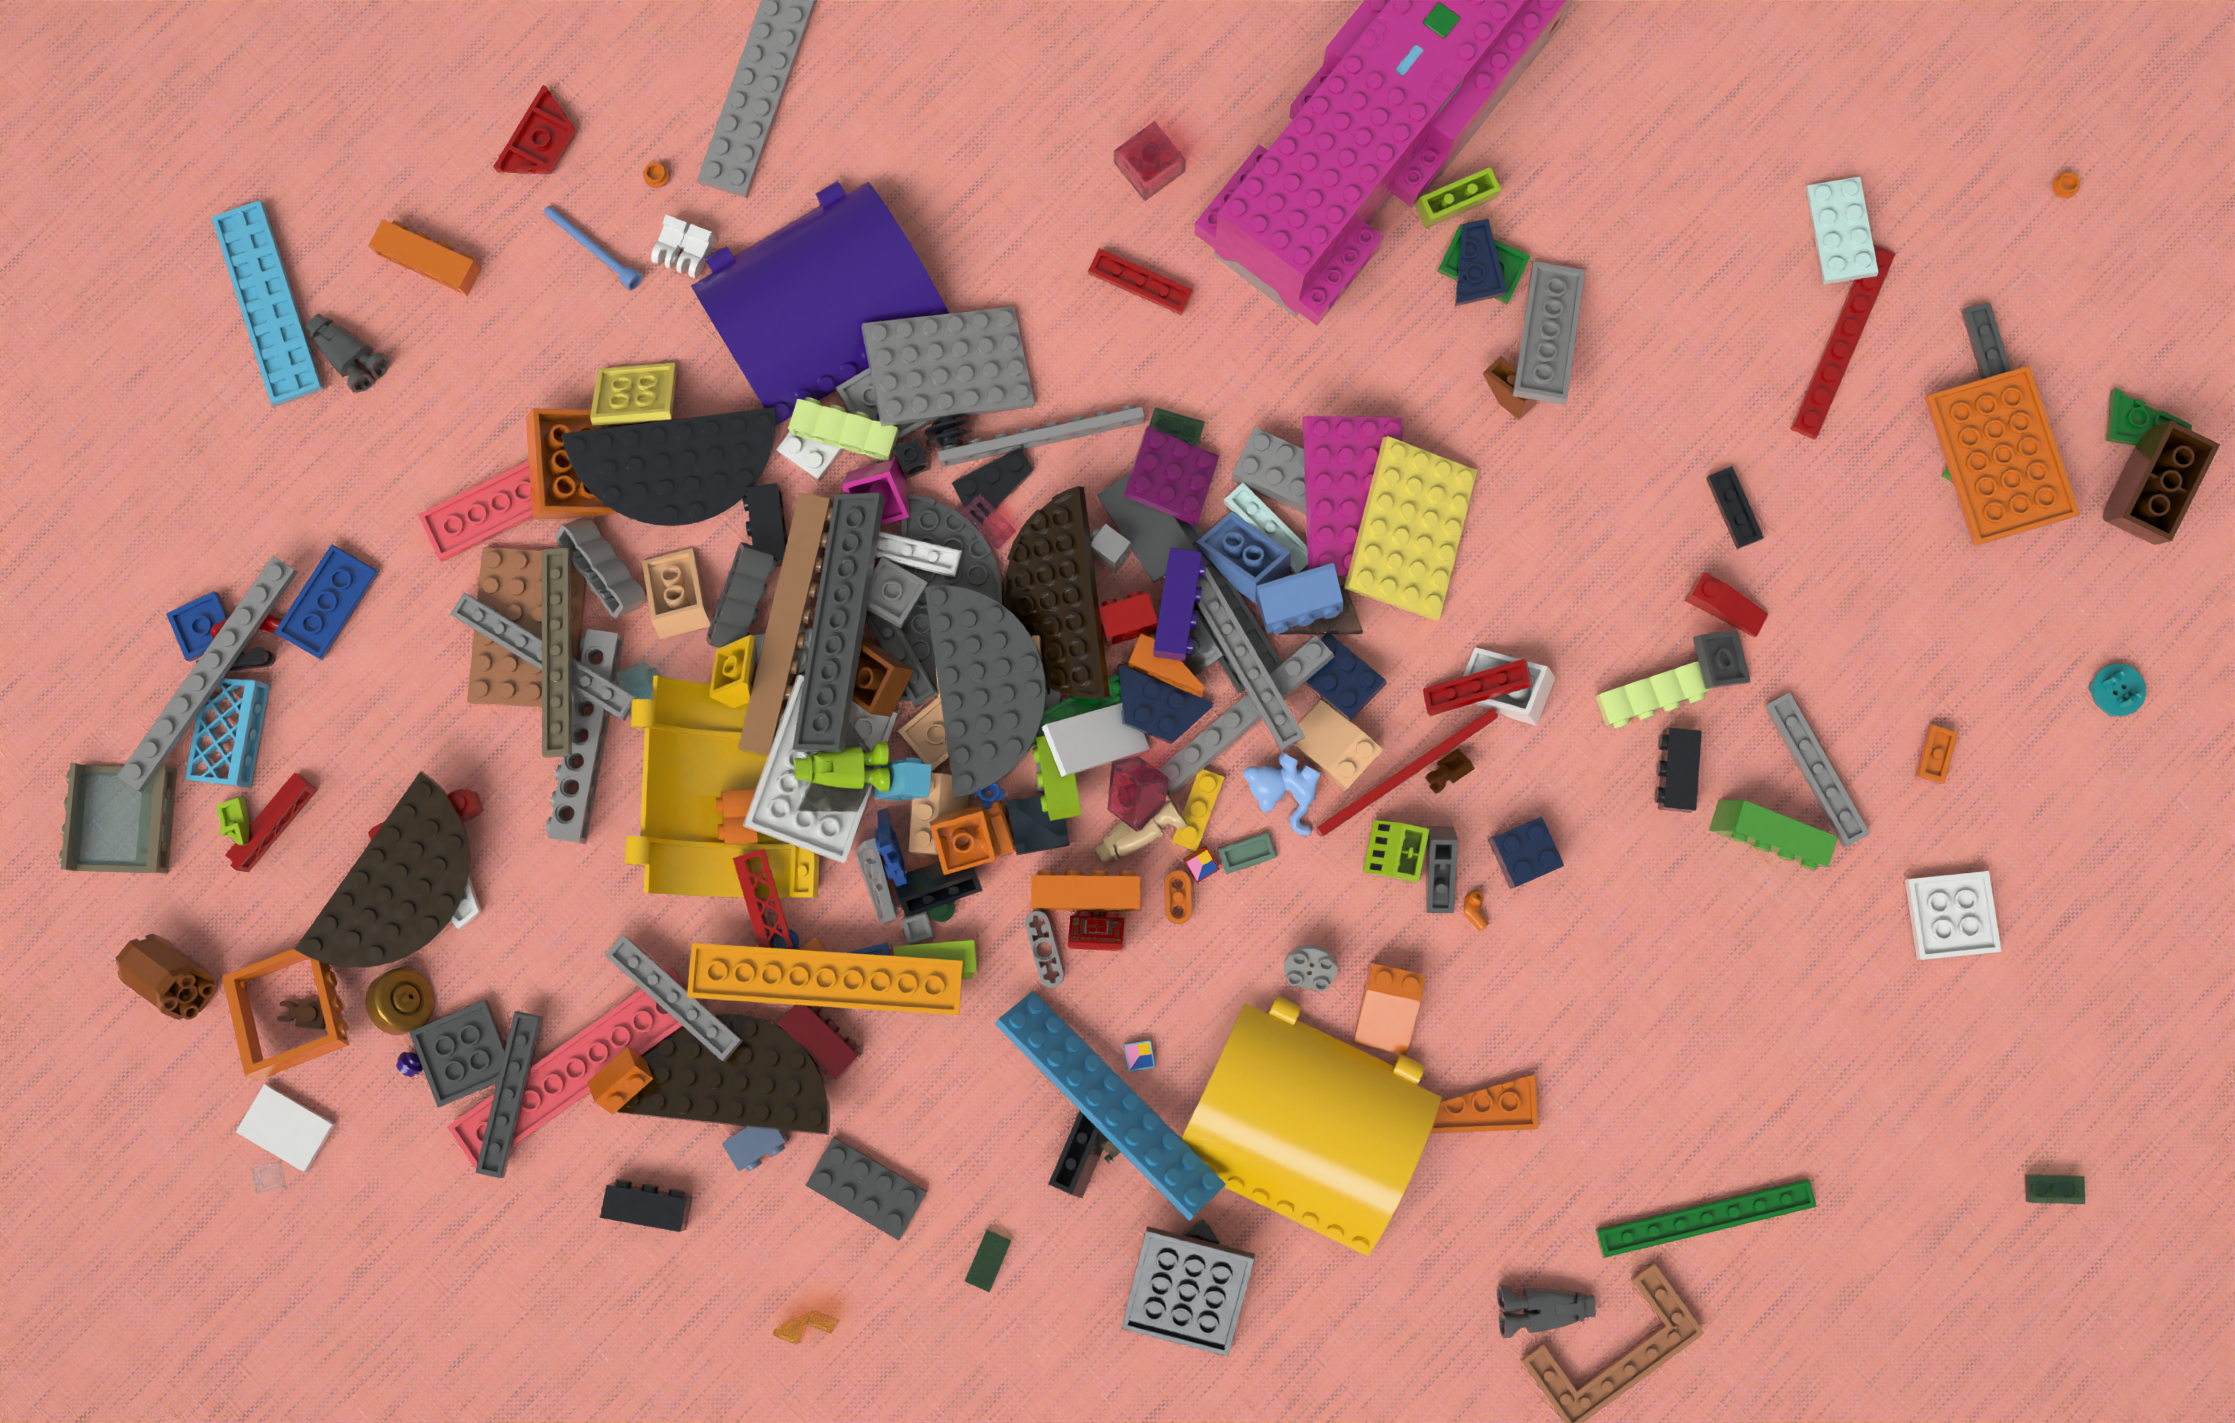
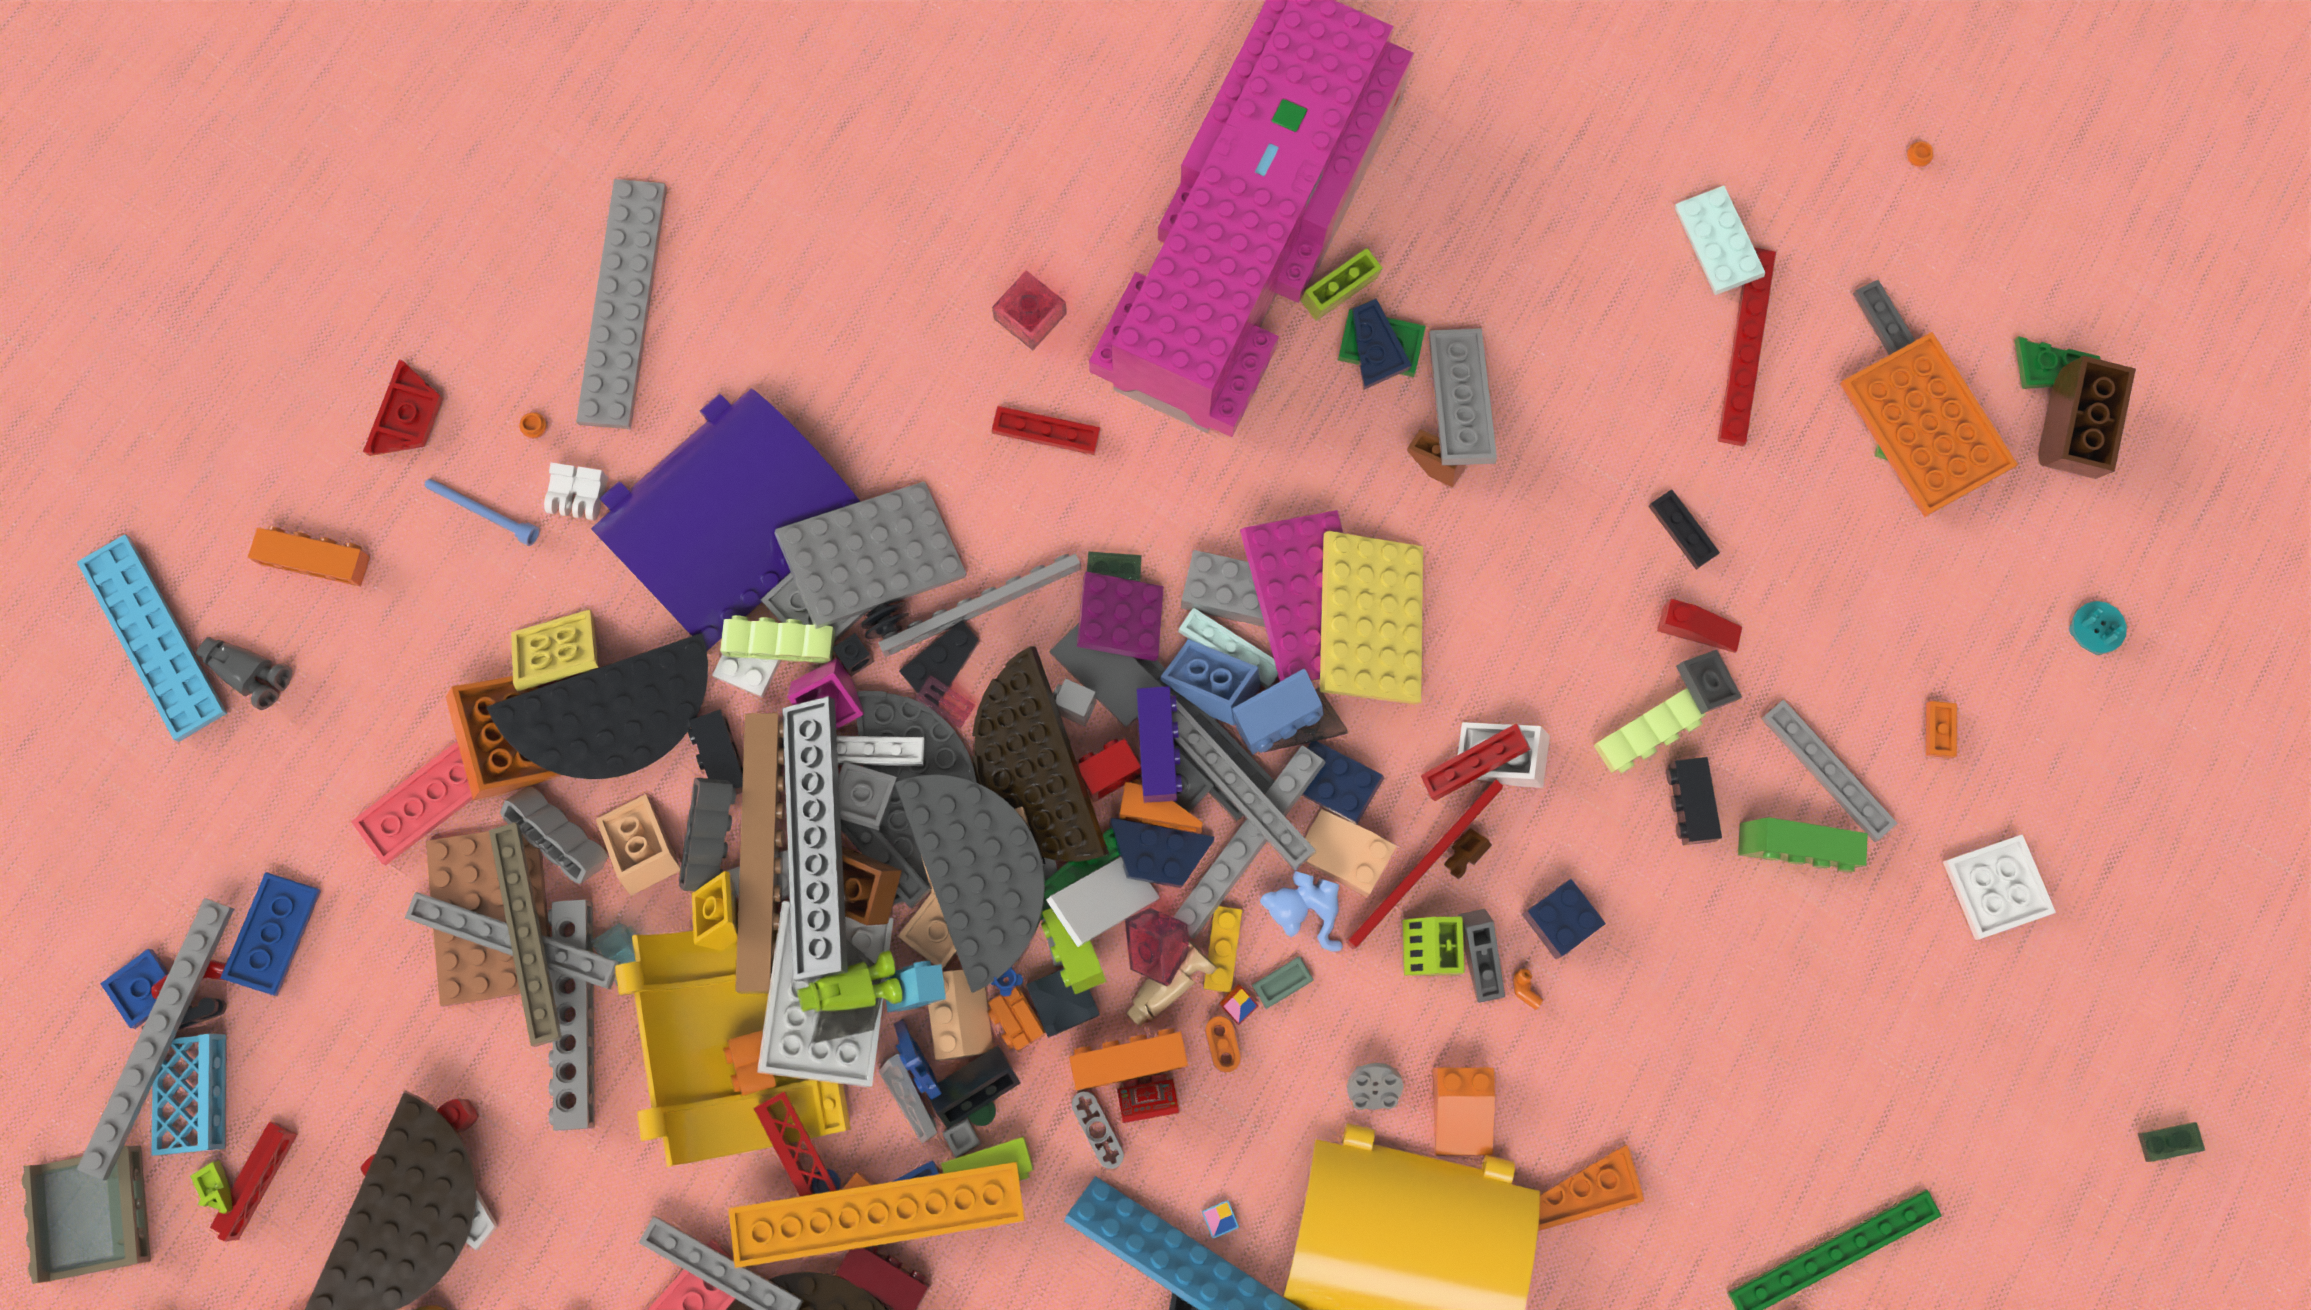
camera: 20 degrees left, 5 degrees down
(962, 840) = (989, 1035): orange slope -> none

